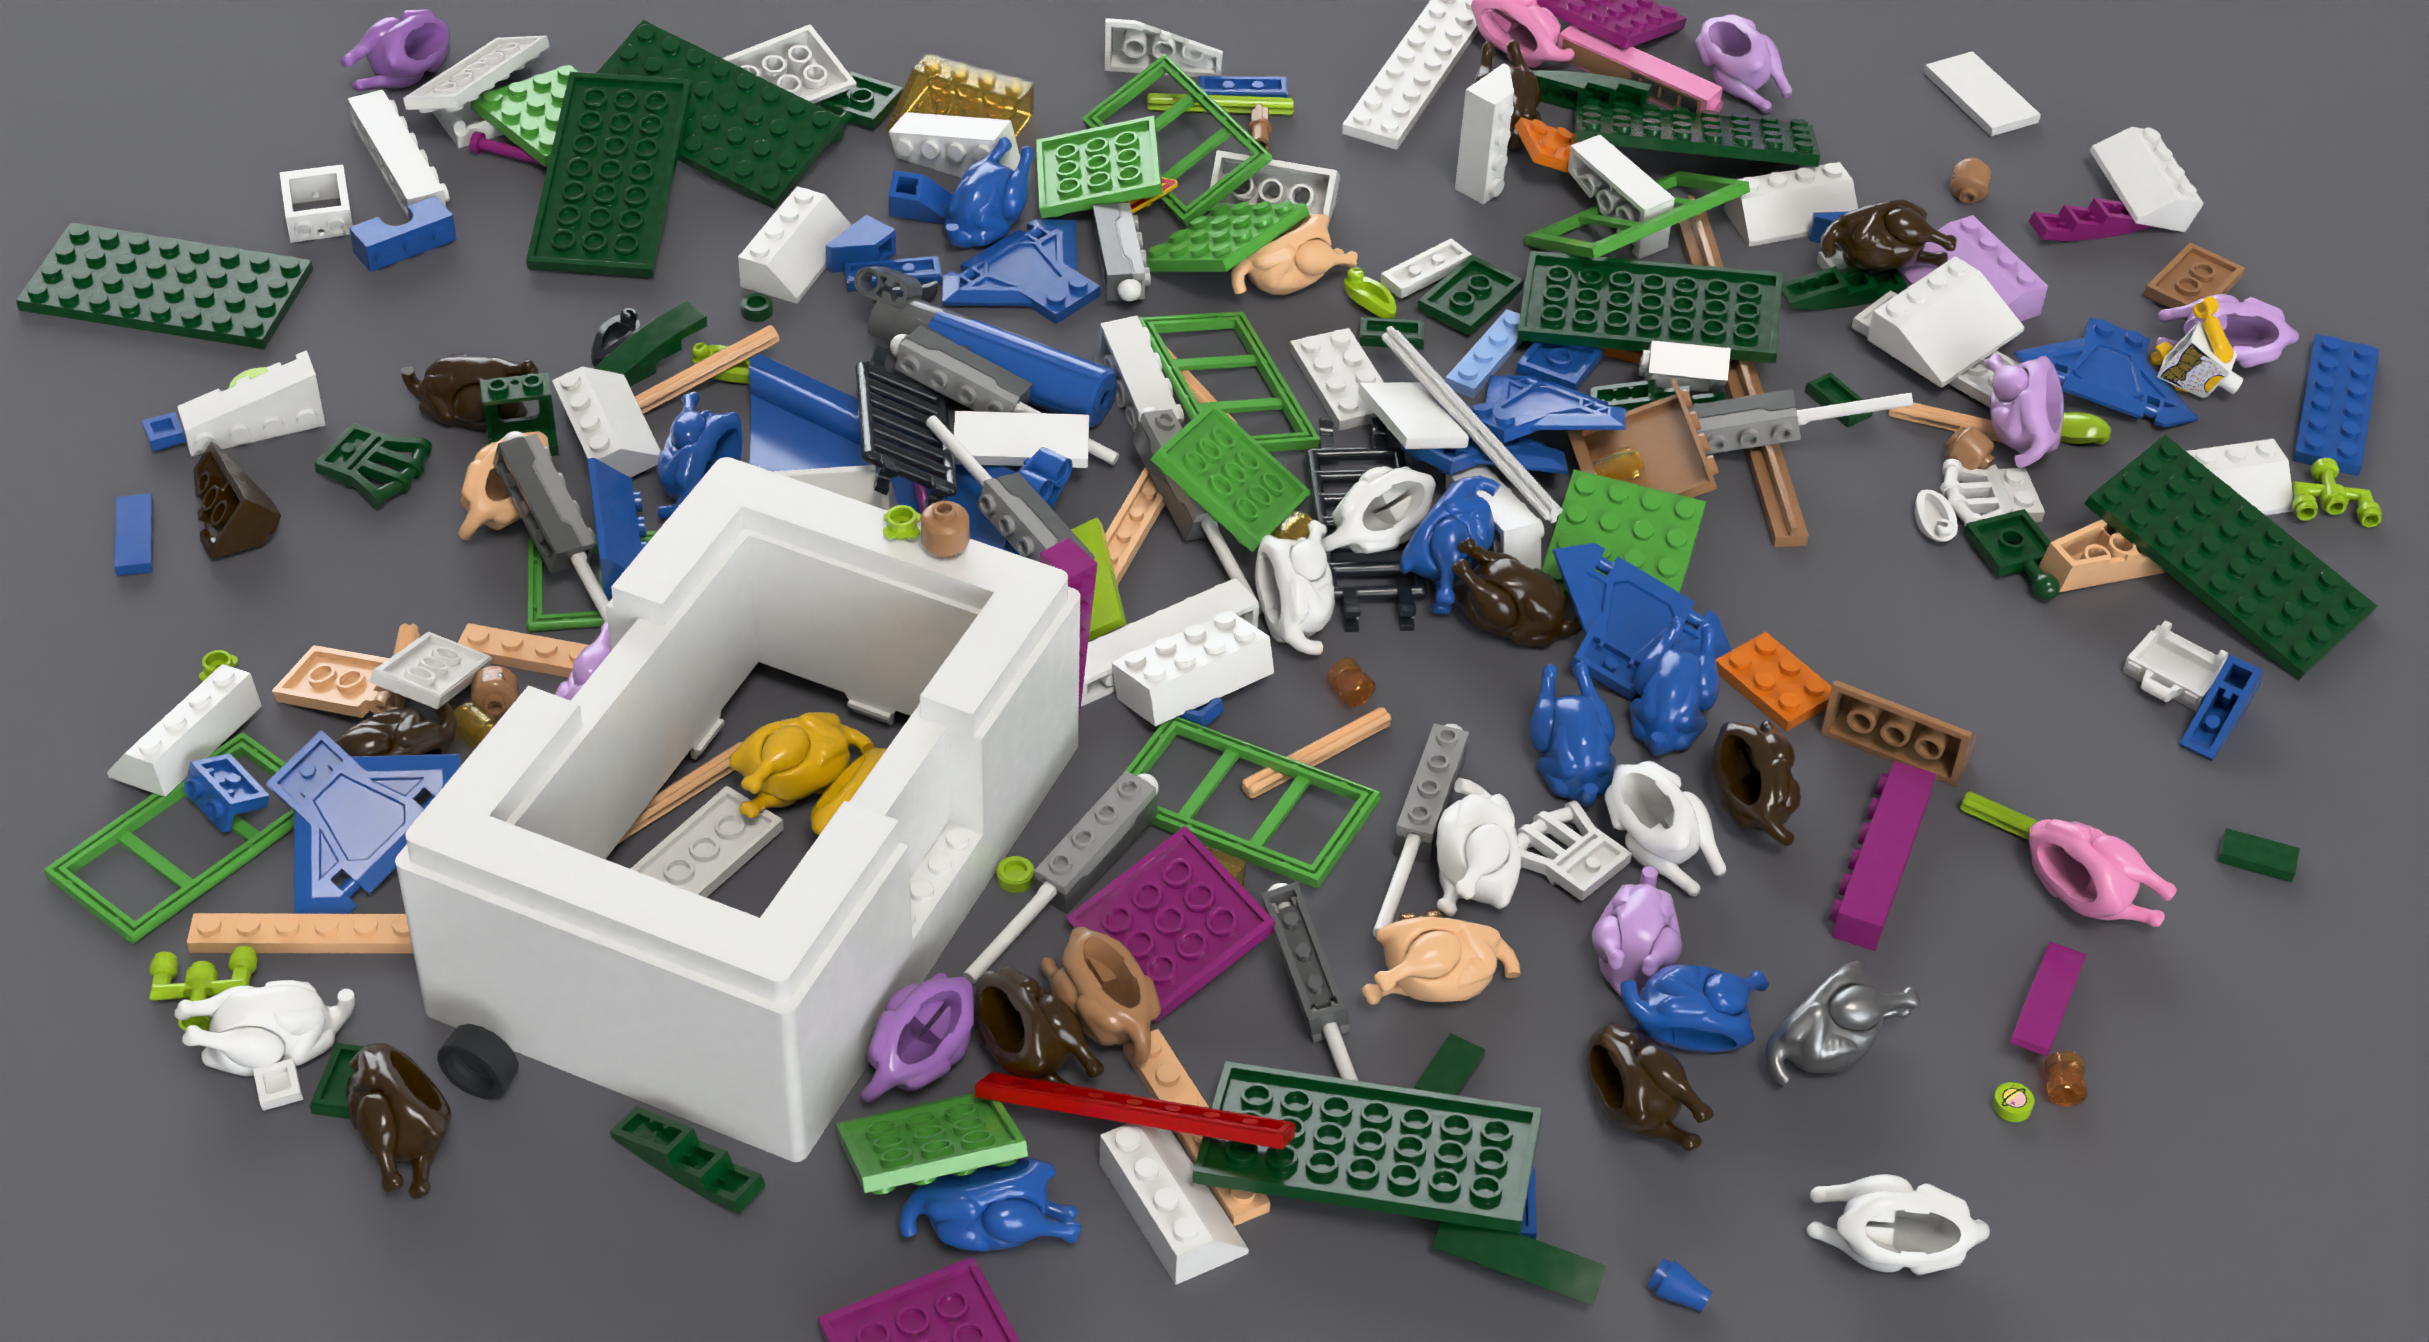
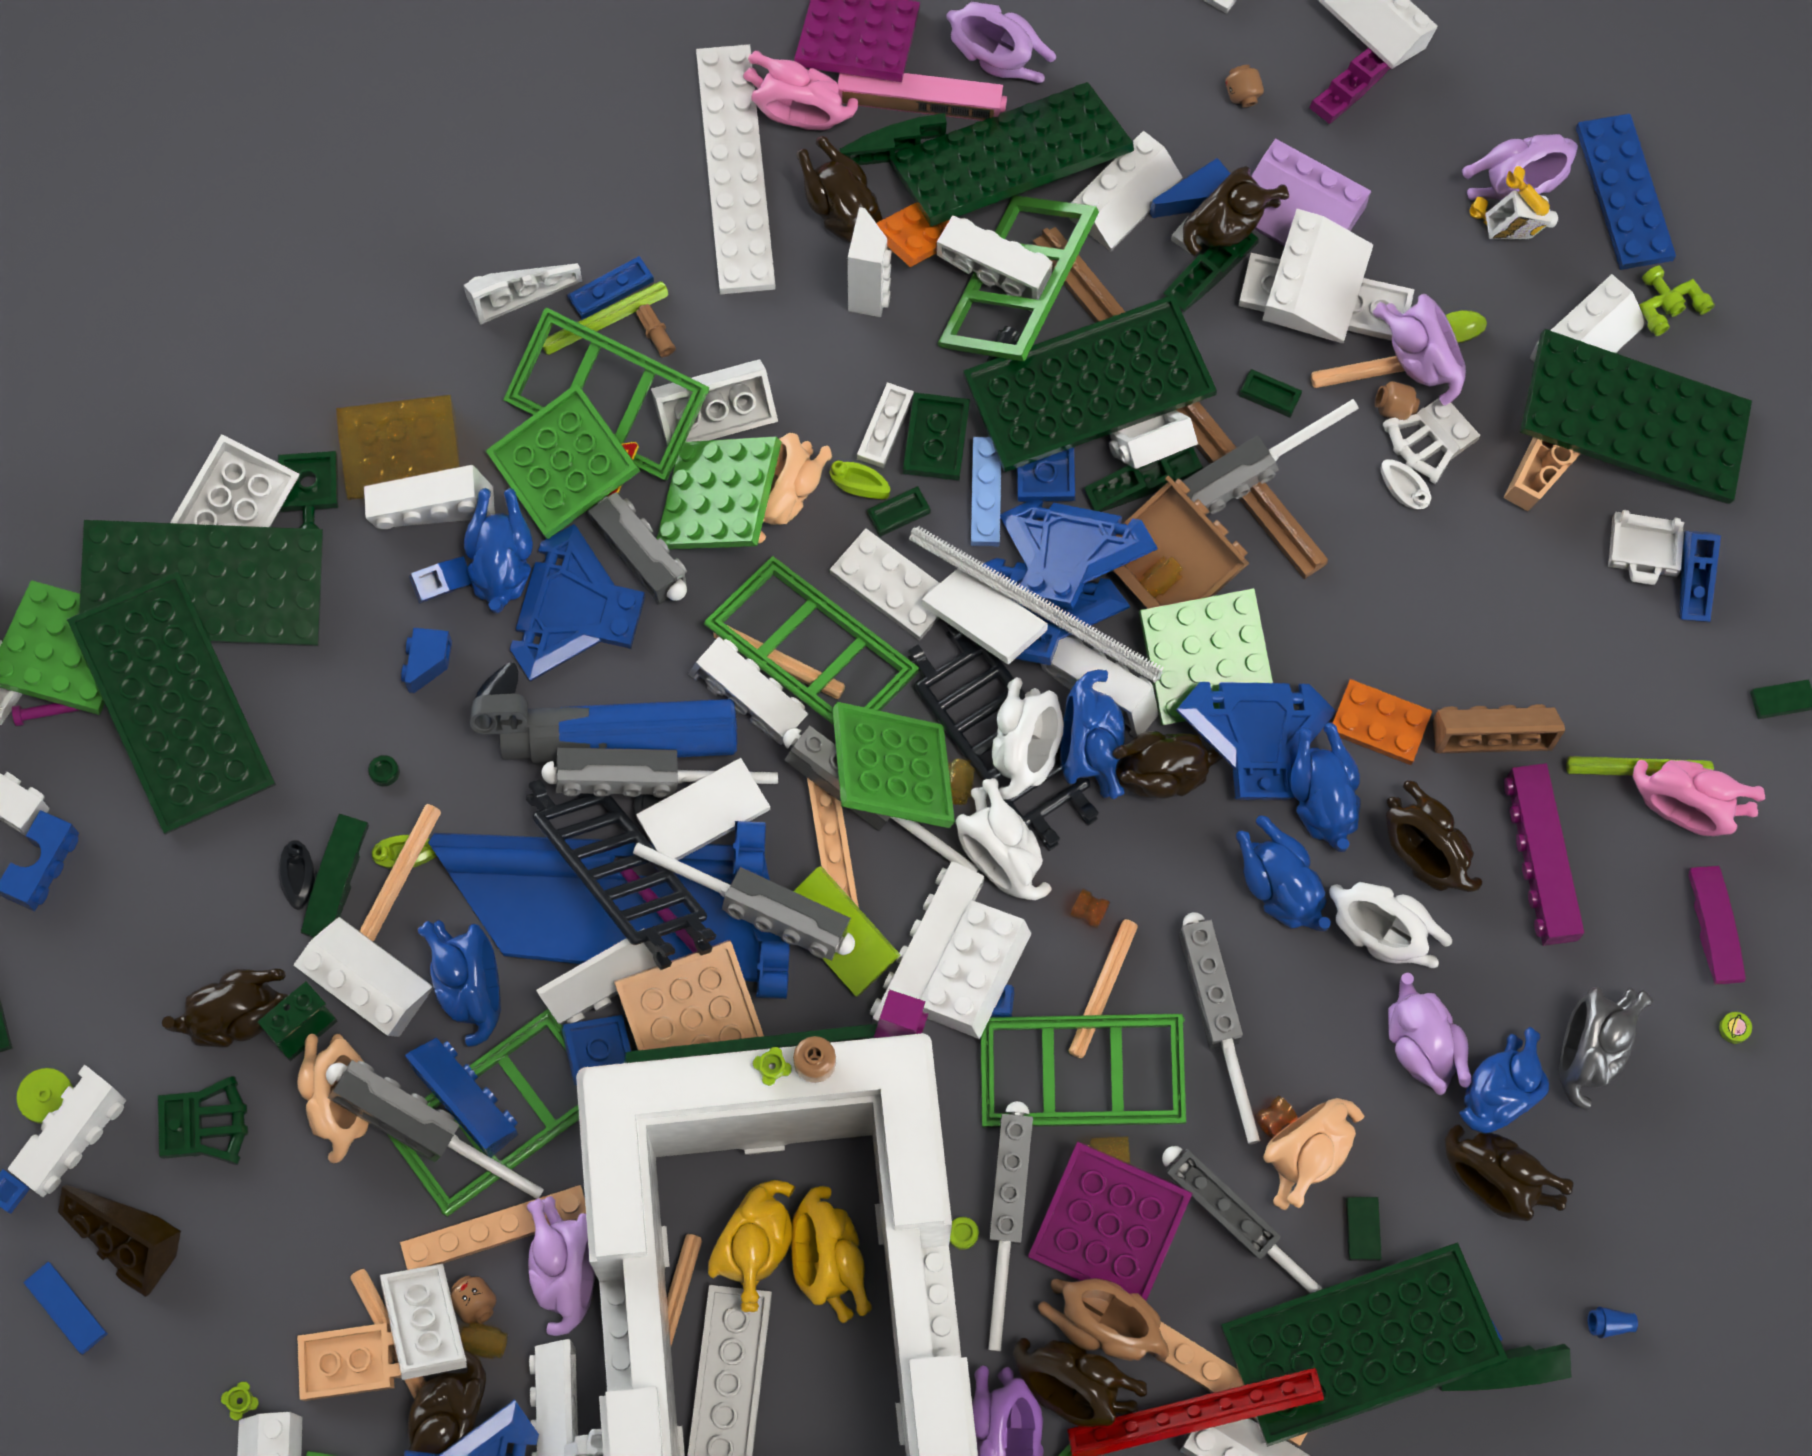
camera: 30 degrees left, 25 degrees up
(792, 246) = (373, 689): white slope -> none
(922, 268) = (467, 669): blue tile -> none
(1477, 849) = (1280, 1030): white piece -> none
(1583, 865) = (1351, 982): white plate -> none
(1897, 1227) = (1729, 1194): white piece -> none
(2025, 554) = (1478, 500): dark green plate -> none
(2066, 1078) = (1762, 990): clear orange wheel -> none
(2113, 372) = (1453, 255): blue plate -> none
(2192, 276) = (1464, 110): medium nougat plate -> none

